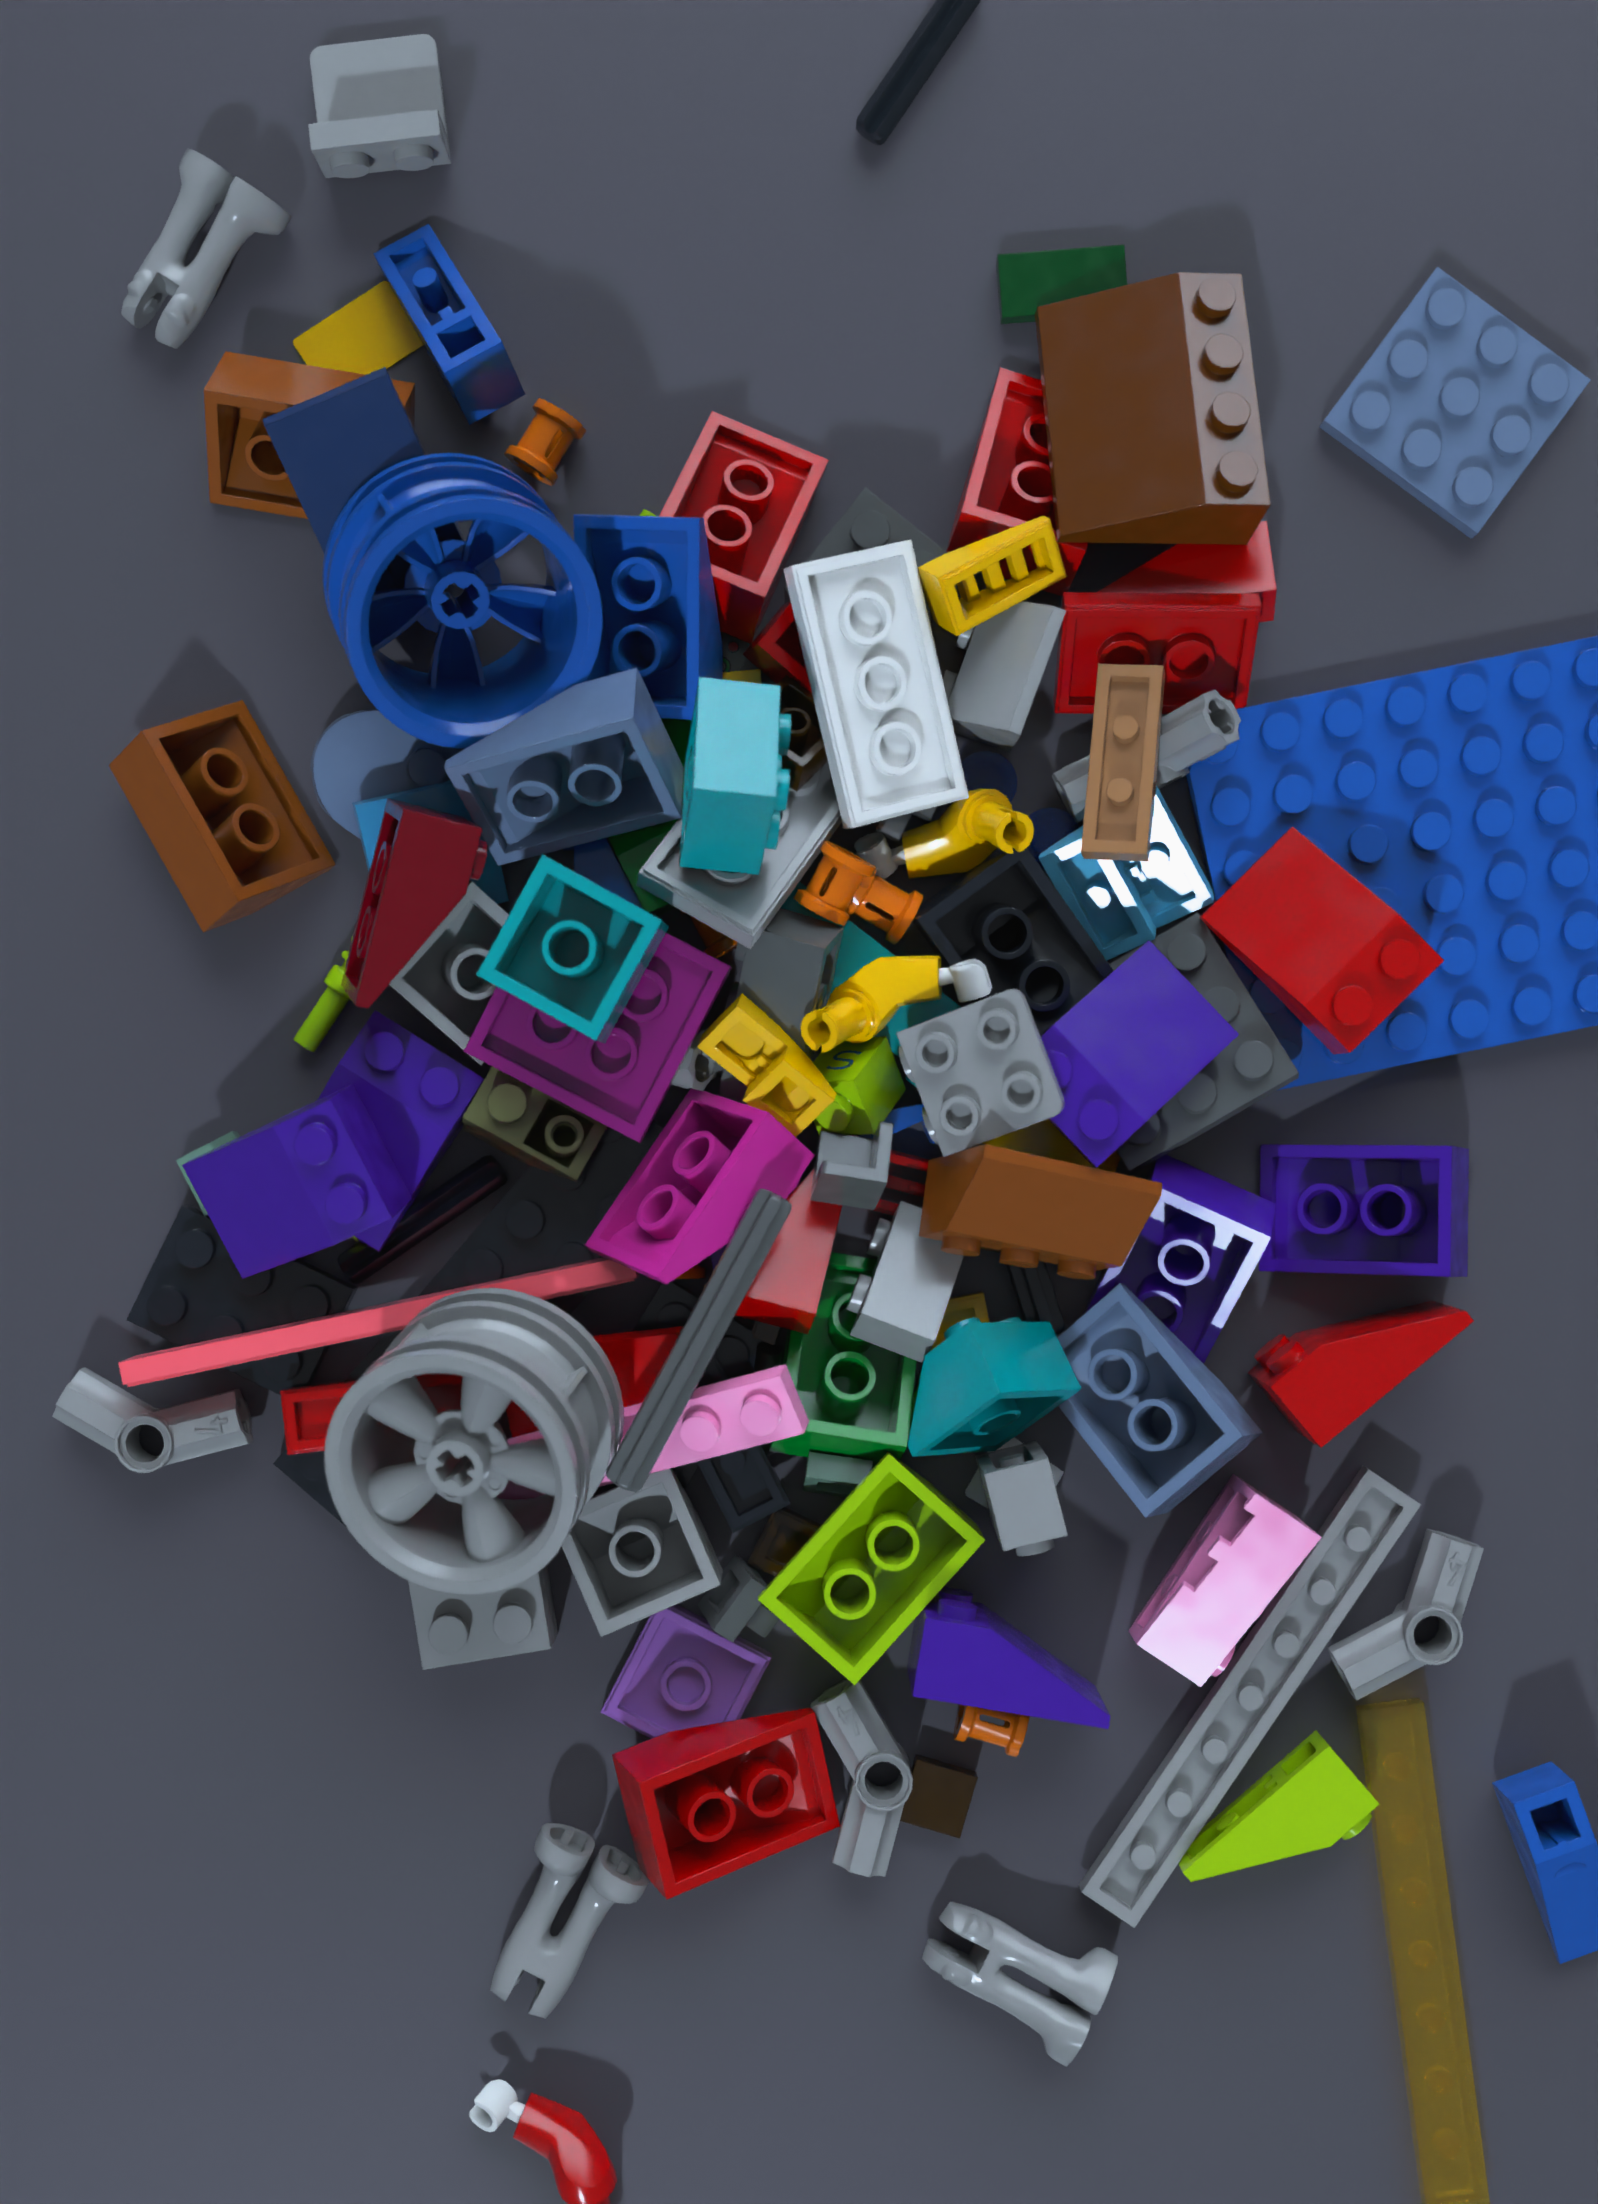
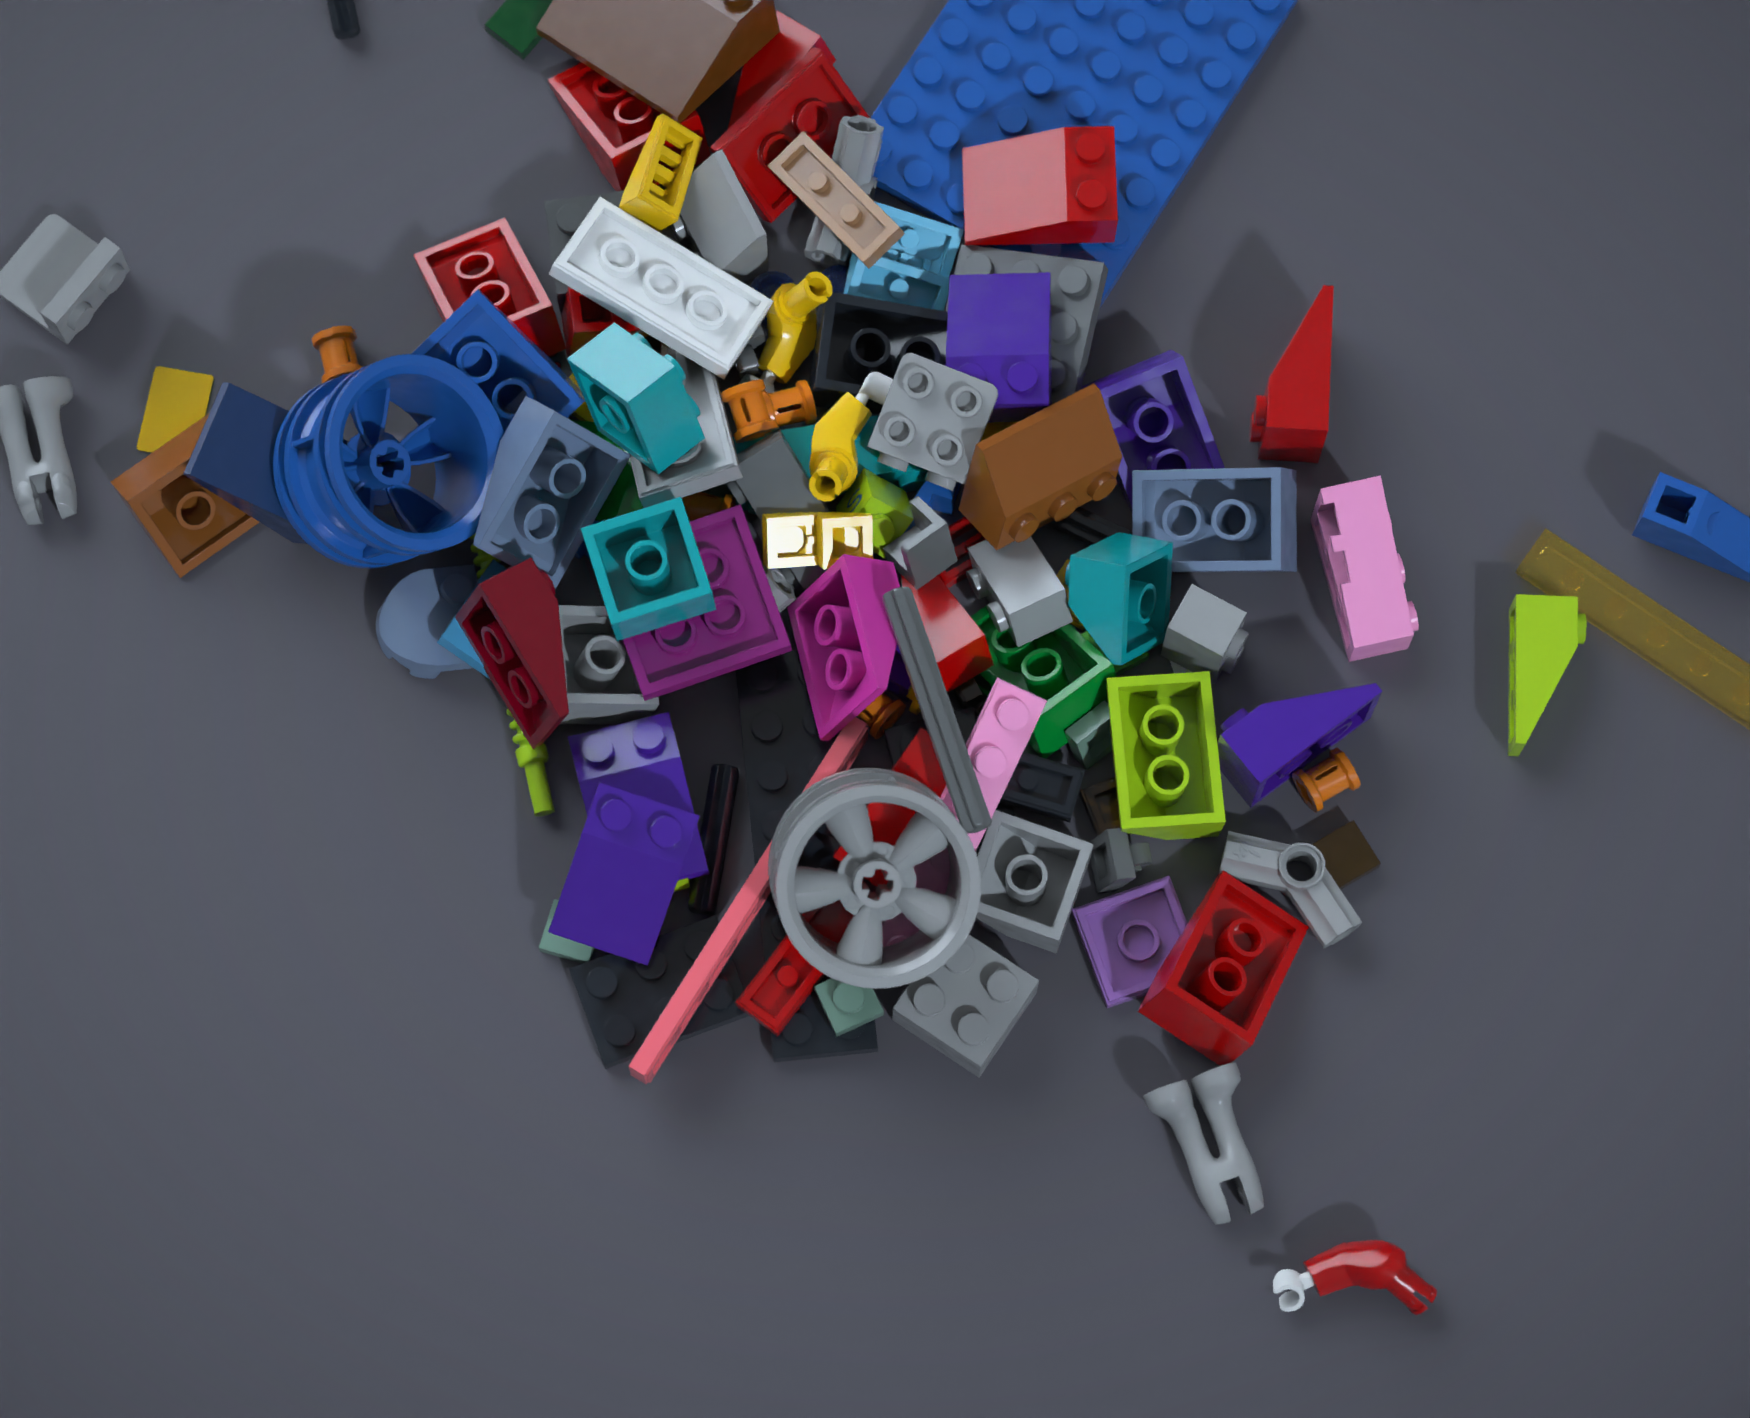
camera: 45 degrees left, 15 degrees down
(116, 1417) = (706, 1085): light grey piece -> none
(220, 813) = (365, 732): dark orange slope -> none
(450, 324) = (222, 347): blue slope -> none
(532, 1126) = (720, 715): olive slope -> none
(998, 1944) = (1476, 923): light grey piece -> none
(1248, 1697) = (1450, 624): light grey plate -> none
(1367, 1209) = (1222, 303): dark purple slope -> none
(1388, 1647) = (1493, 514): light grey piece -> none

